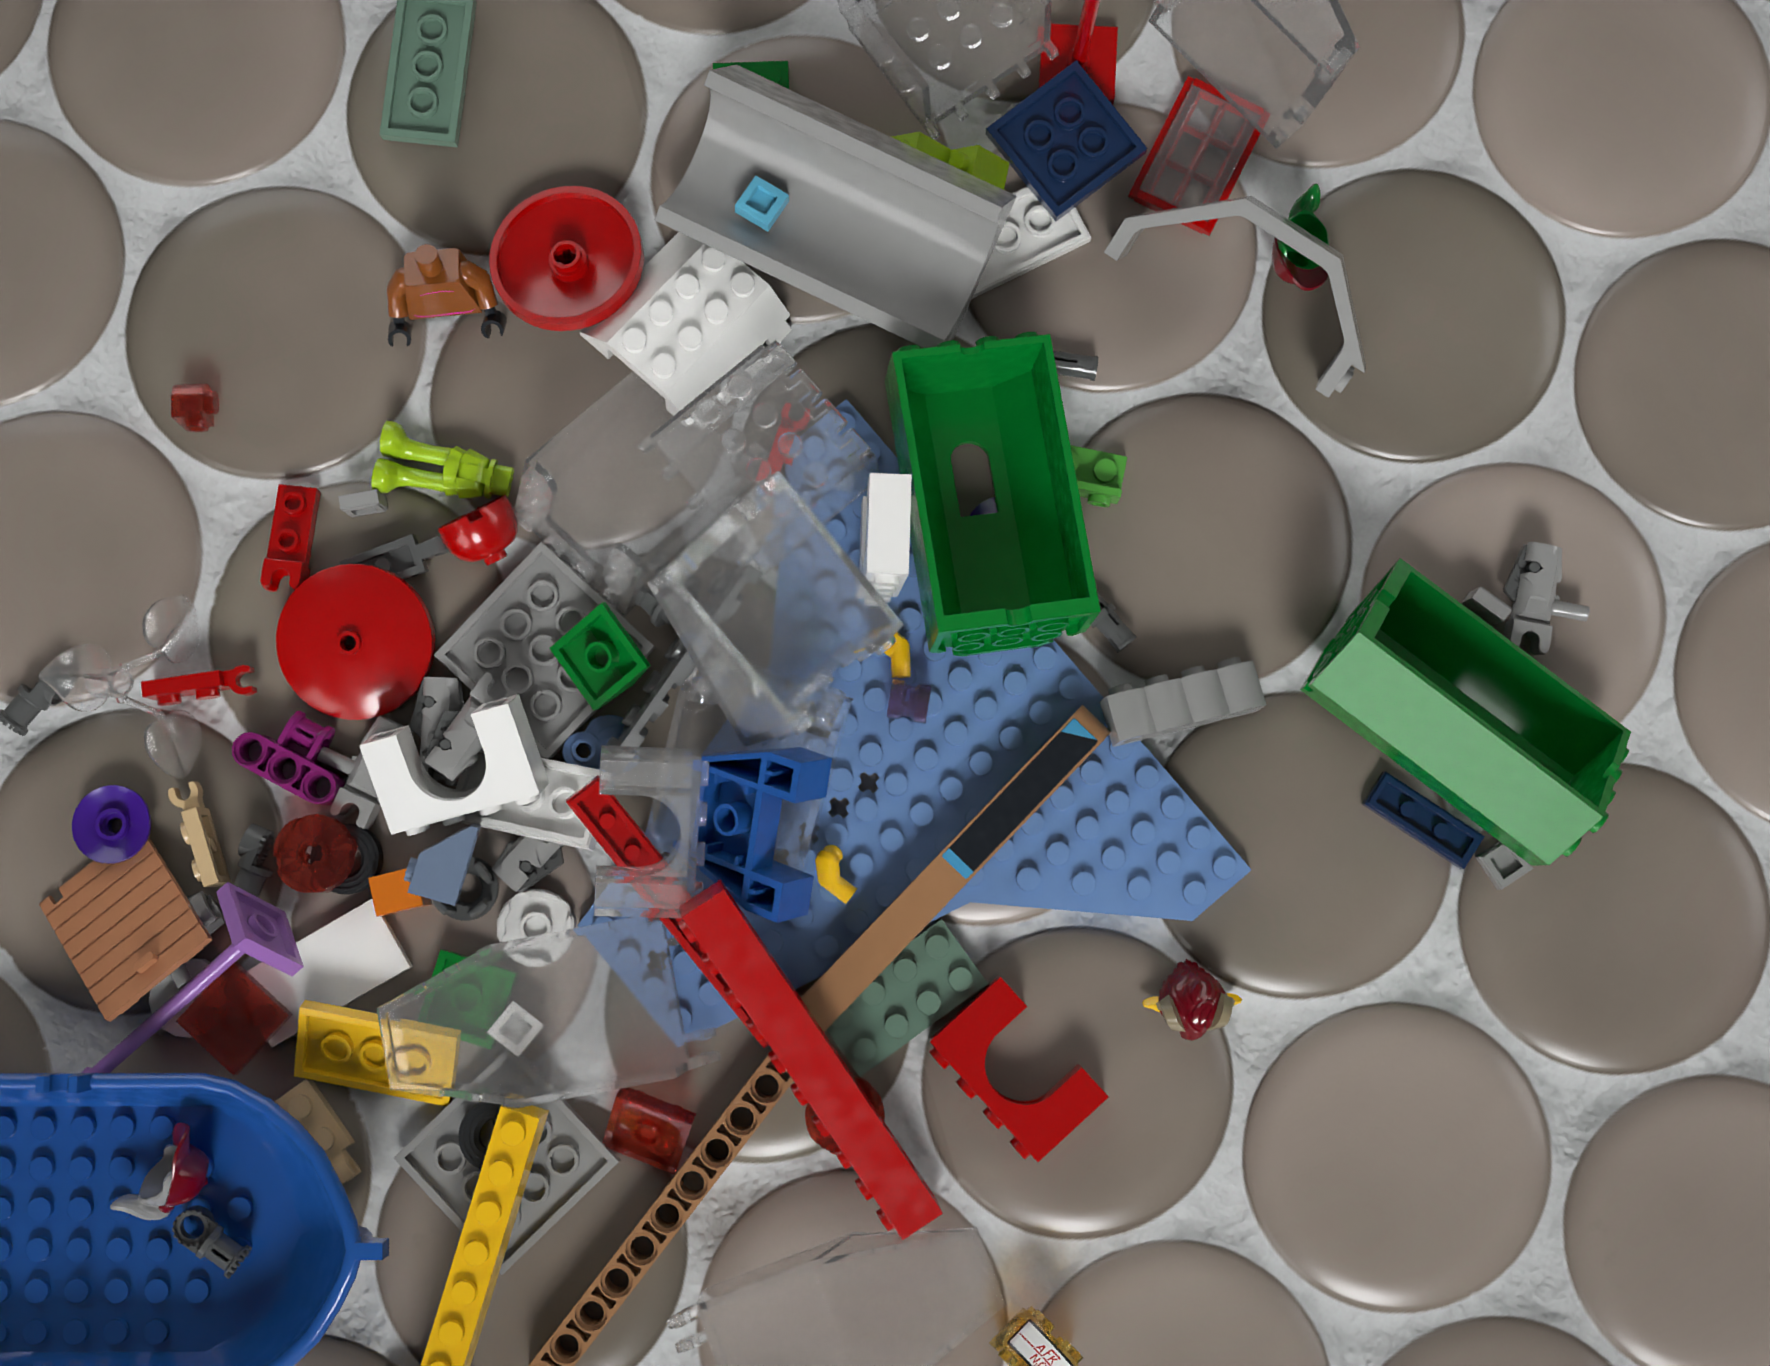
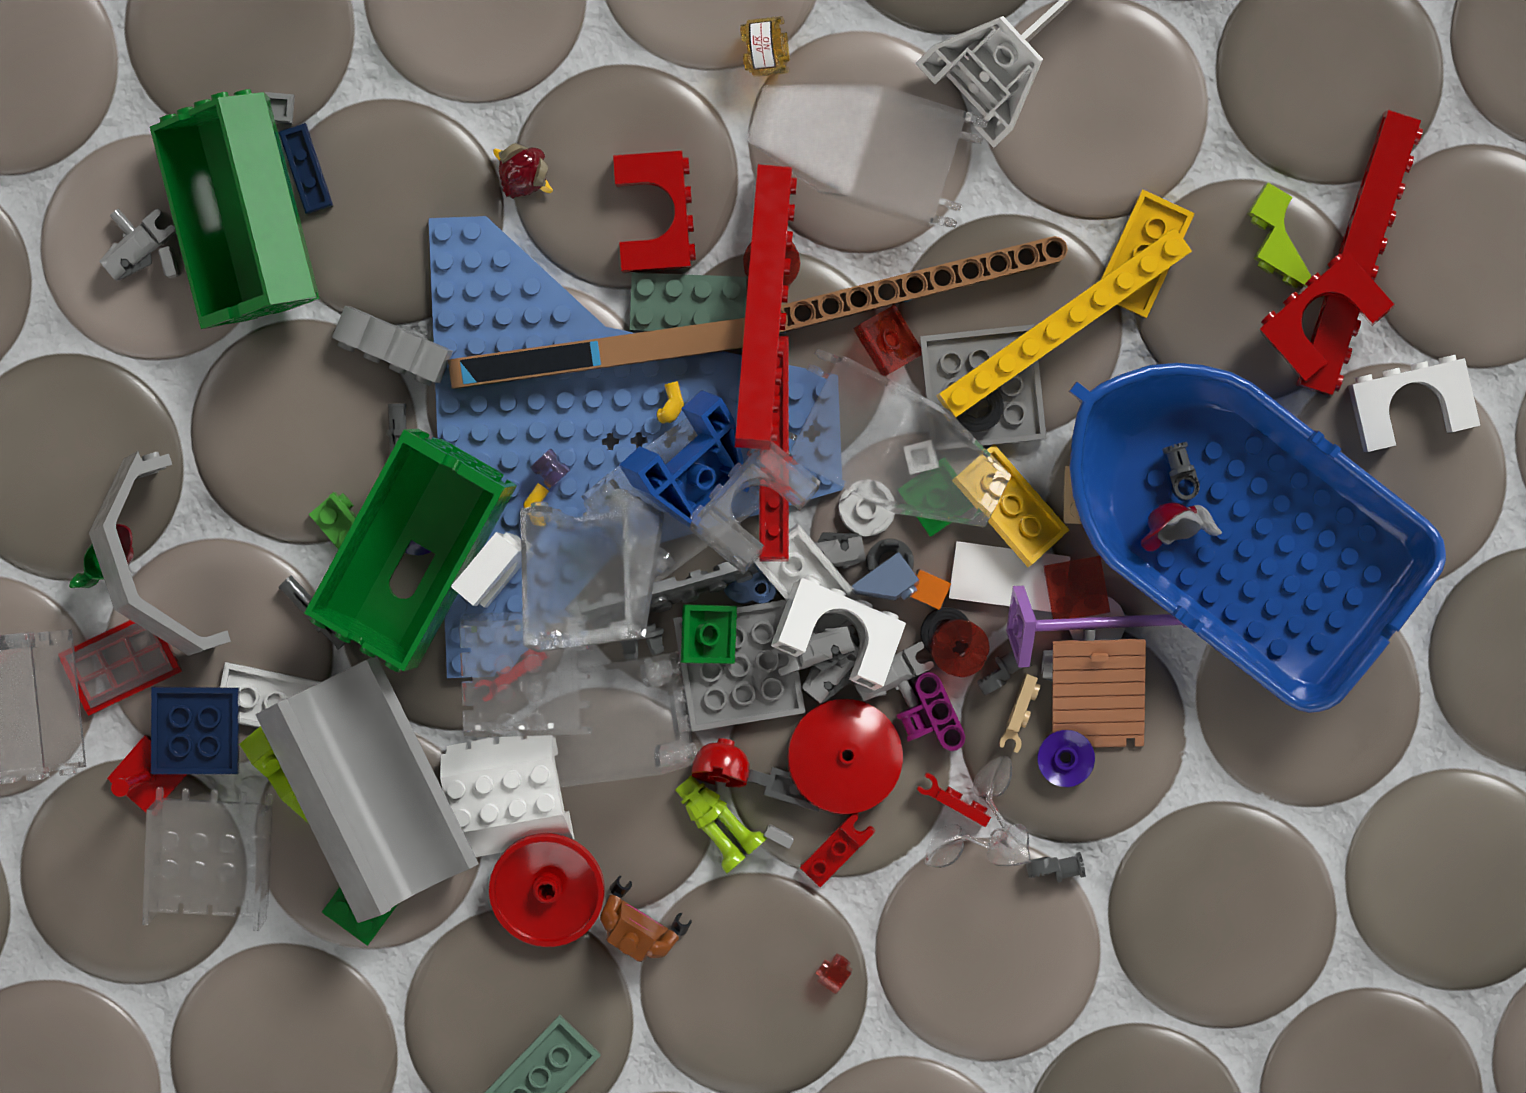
camera: 145 degrees left, 5 degrees up
(761, 203) = (408, 826): medium azure plate -> none

